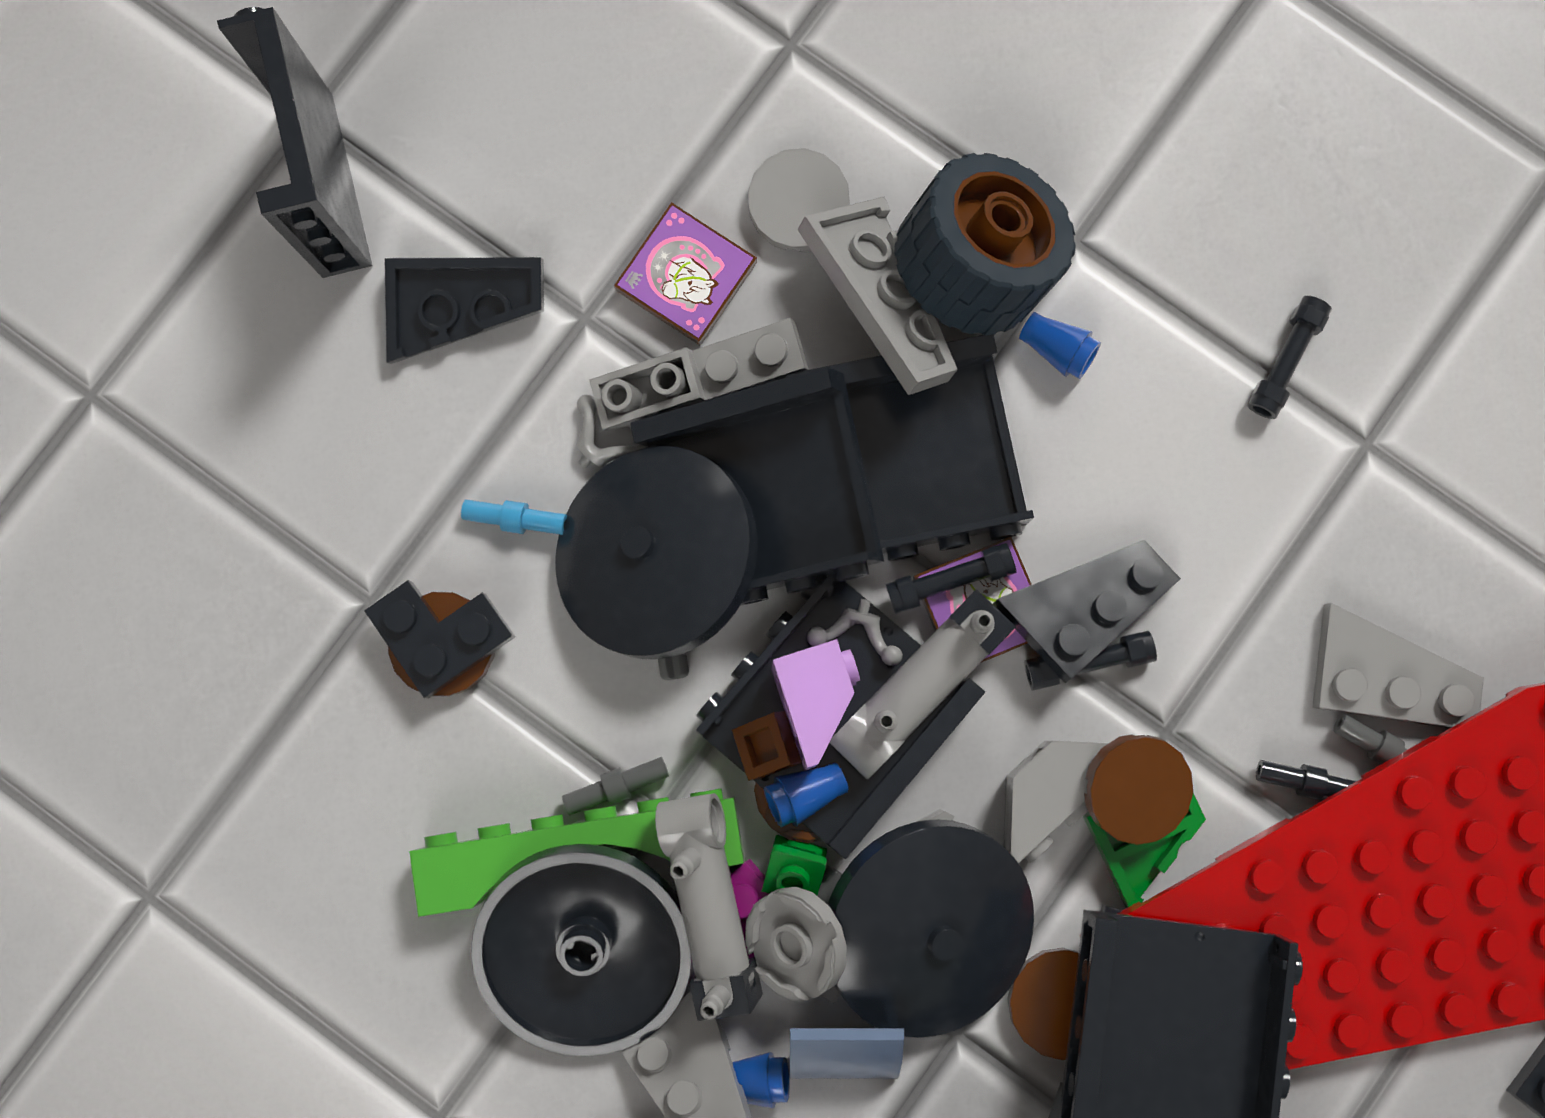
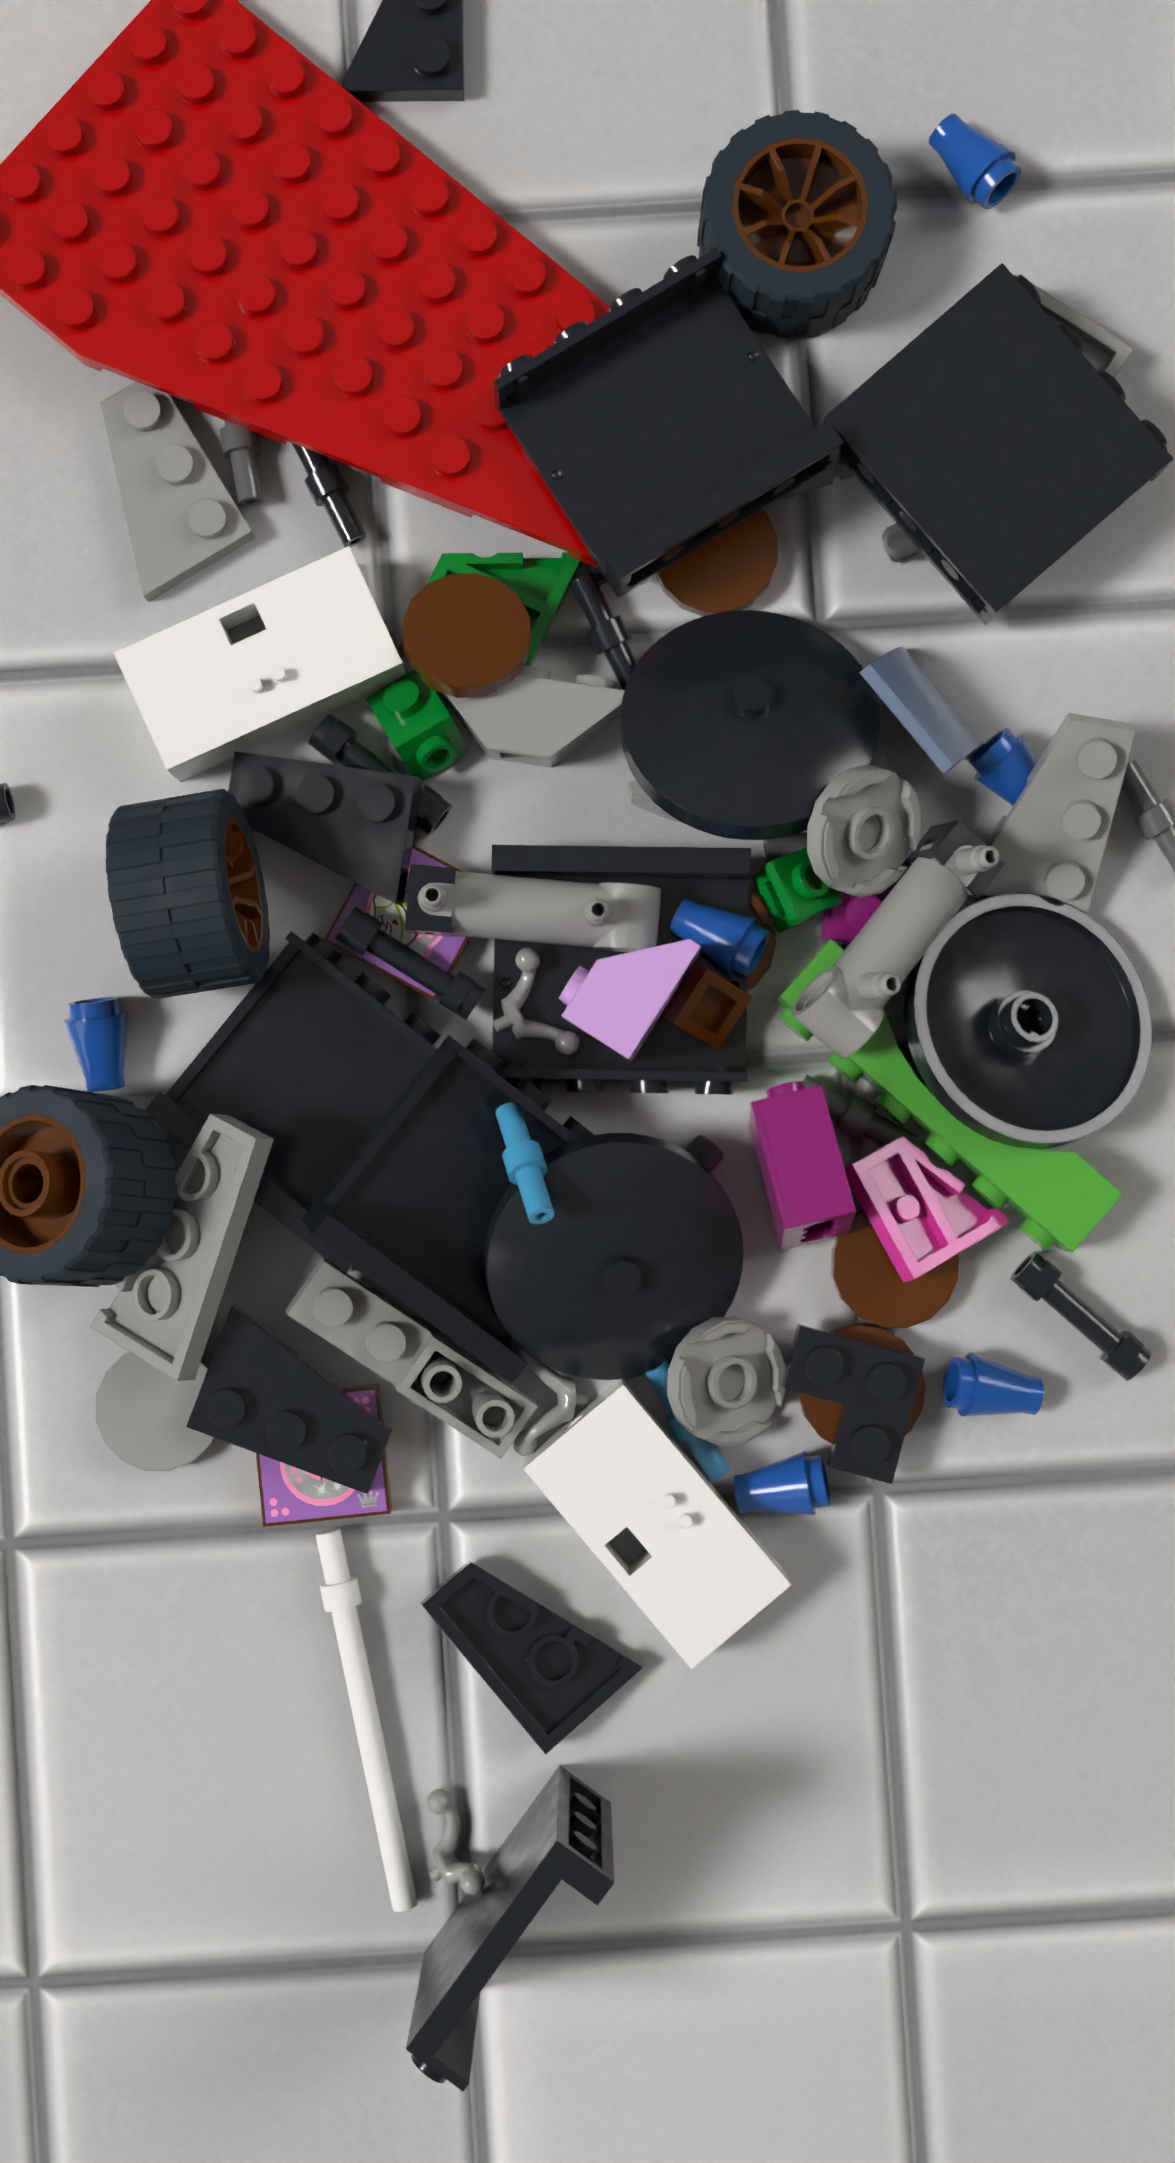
camera: 135 degrees left, 5 degrees up
(323, 831) = (1120, 1350): none -> black bar
(372, 724) = (988, 1388): none -> blue cone
(379, 152) = (444, 1854): none -> light grey piece
(419, 545) = (786, 1486): none -> blue cone
(466, 443) = (656, 1523): none -> white brick
(500, 731) = (873, 1286): none -> reddish brown tile
(518, 560) = (726, 1380): none -> light grey tile
(521, 774) = (918, 1208): none -> wing
(586, 214) = (340, 1597): none -> white bar
(613, 720) = (800, 1165): none -> magenta piece
(732, 271) = (284, 1409): none -> black wing
(760, 539) = (524, 1163): none -> dark azure bar
(1065, 887) = (608, 632): none -> black bar
(1102, 709) = (418, 725): none -> green bracket
(1111, 469) = (187, 894): none -> black wheel
(1224, 641) = (261, 665): none -> white brick

